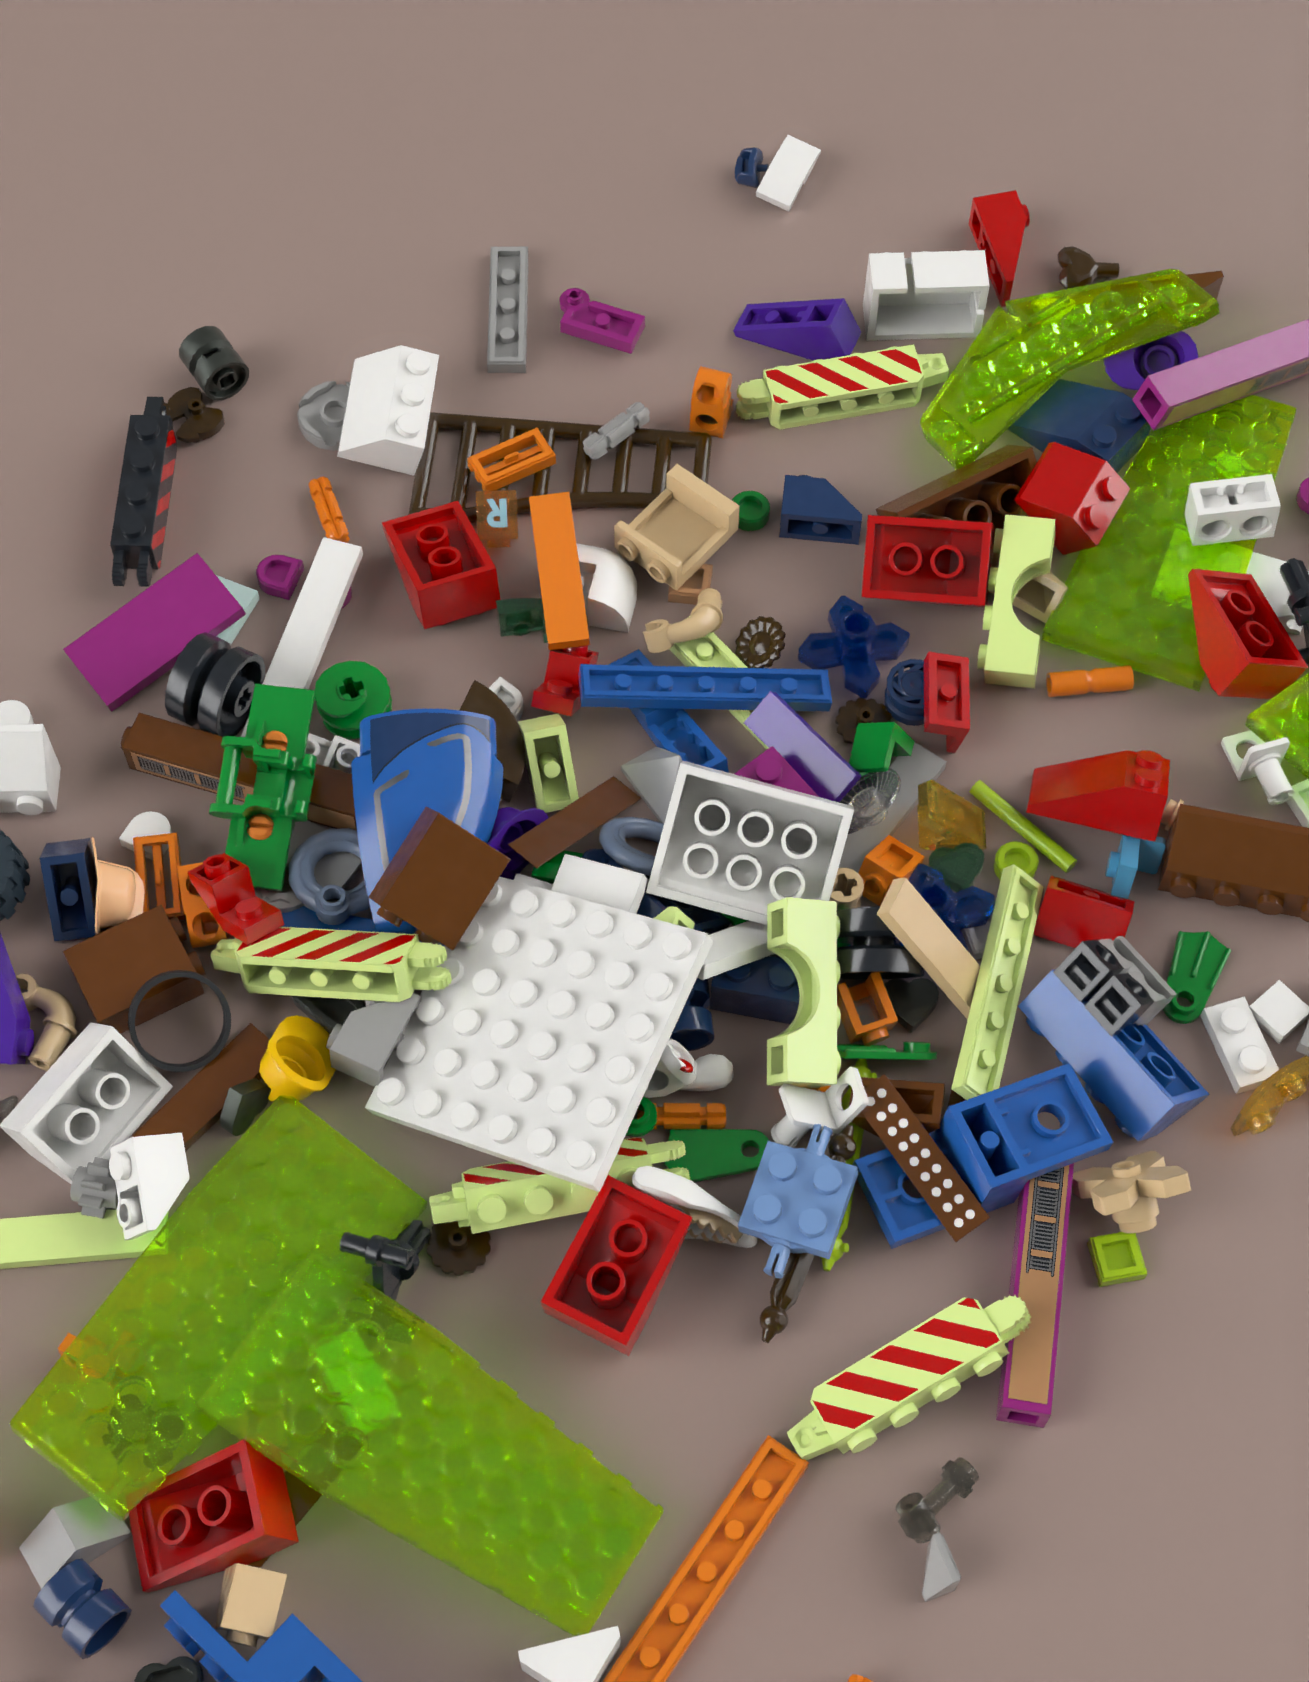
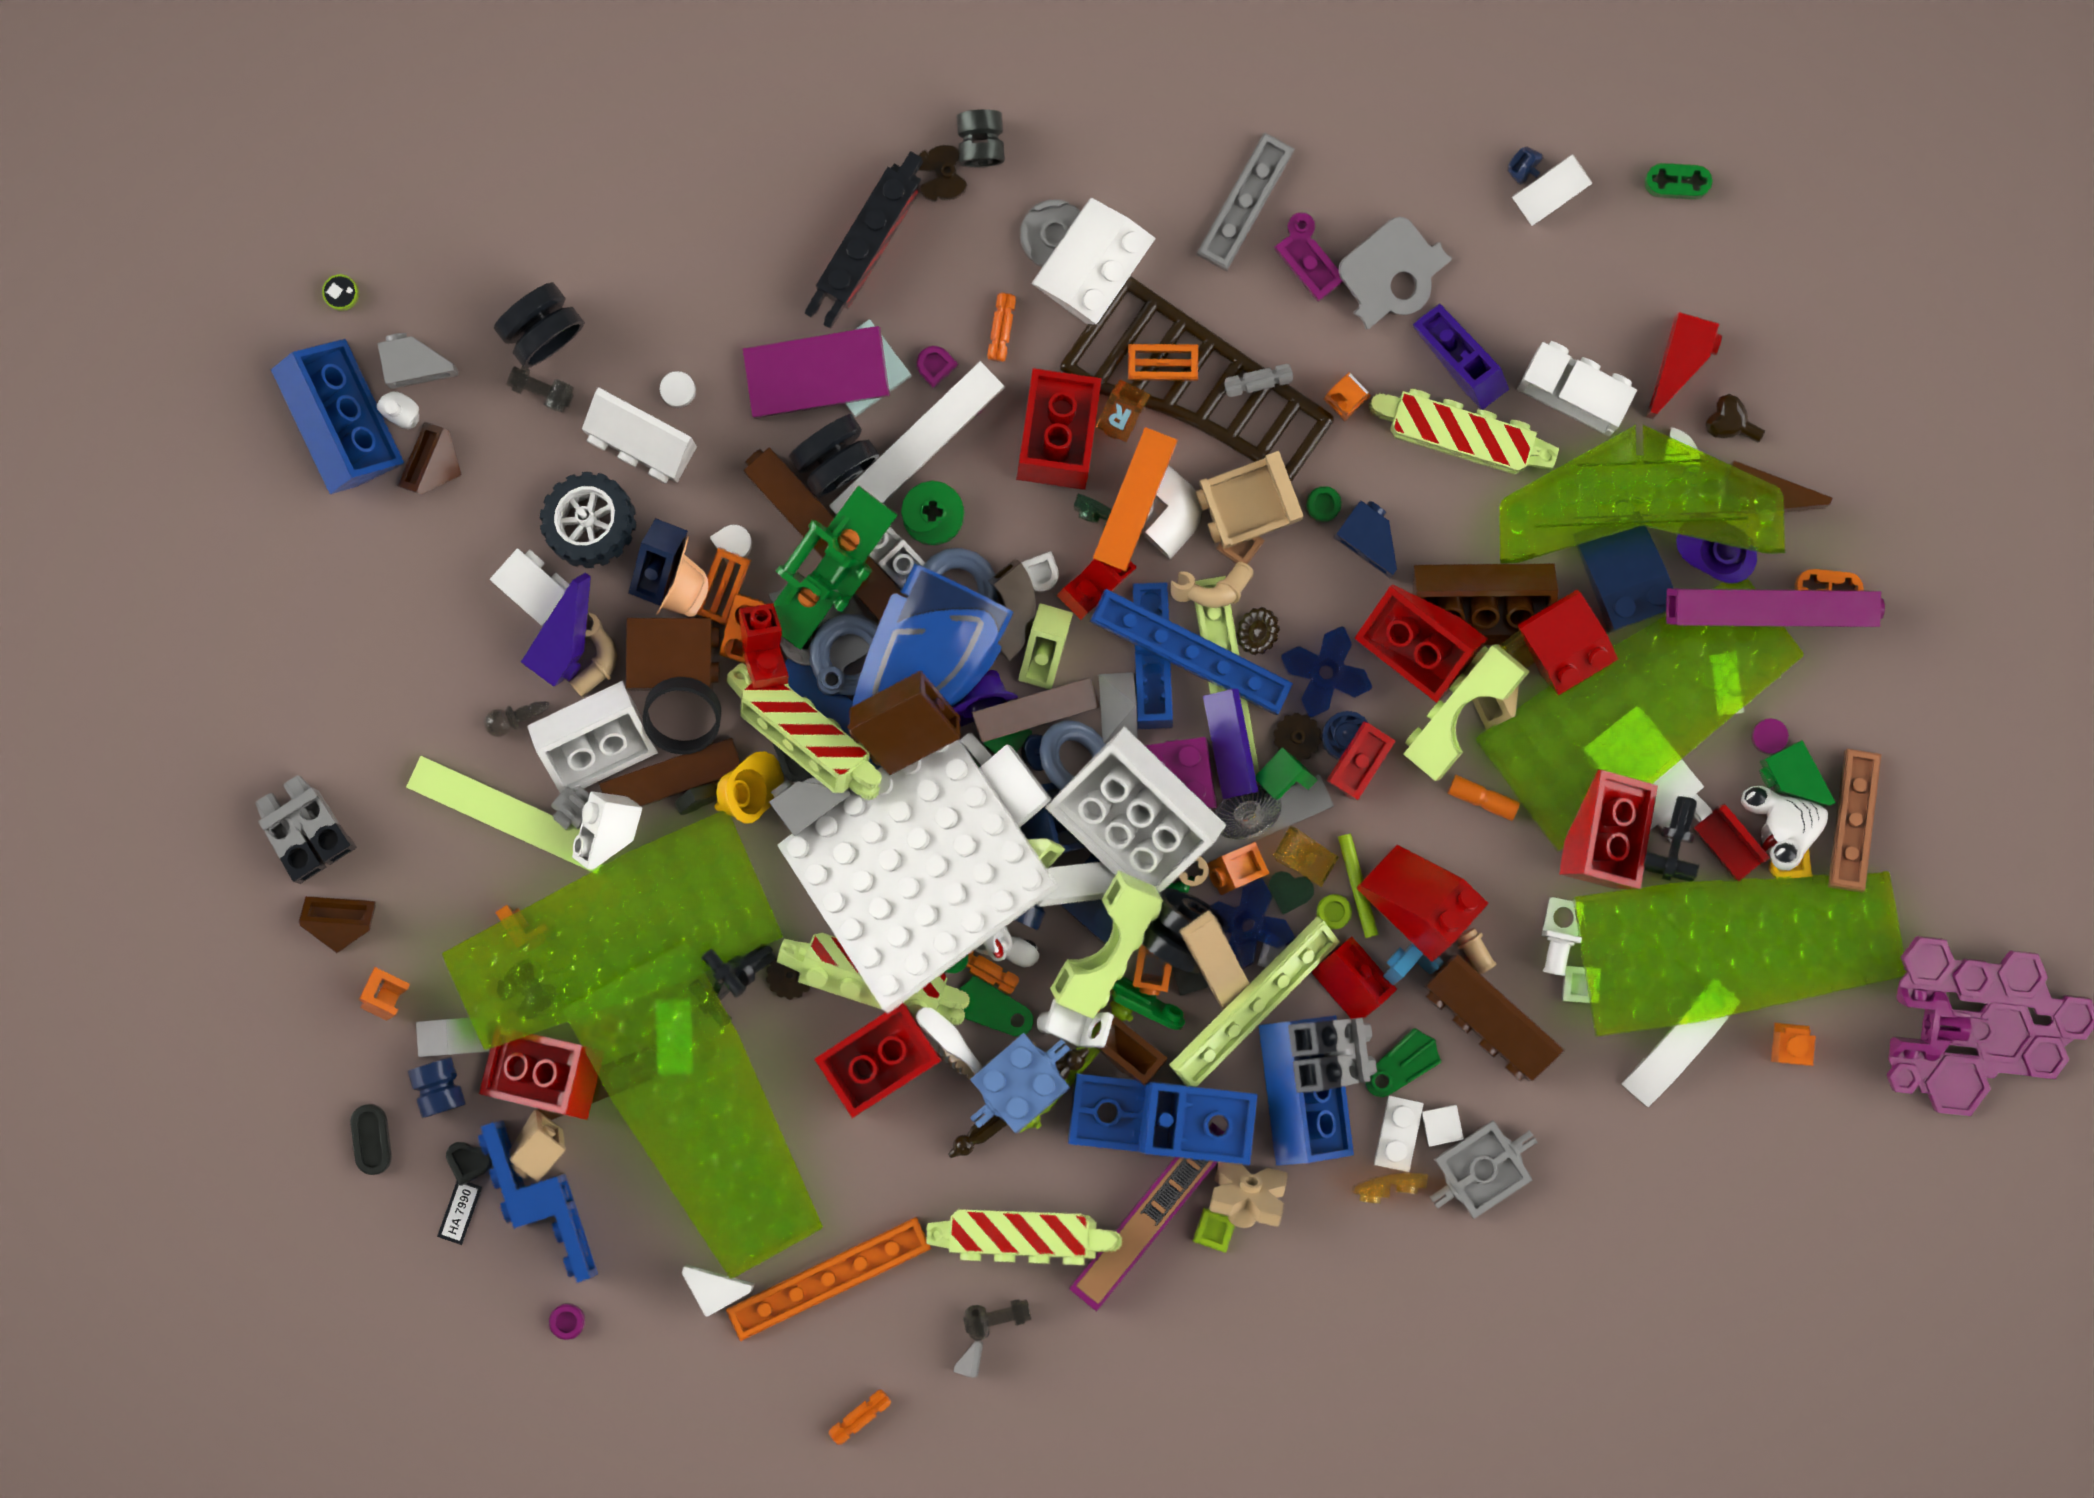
camera: 35 degrees right, 25 degrees up
(667, 289) = (1379, 258): none -> light grey piece
(895, 122) = (1678, 172): none -> green beam
(922, 1160) = (1120, 1099): reddish brown sticker -> none
(1232, 509) = (1671, 732): white brick -> none

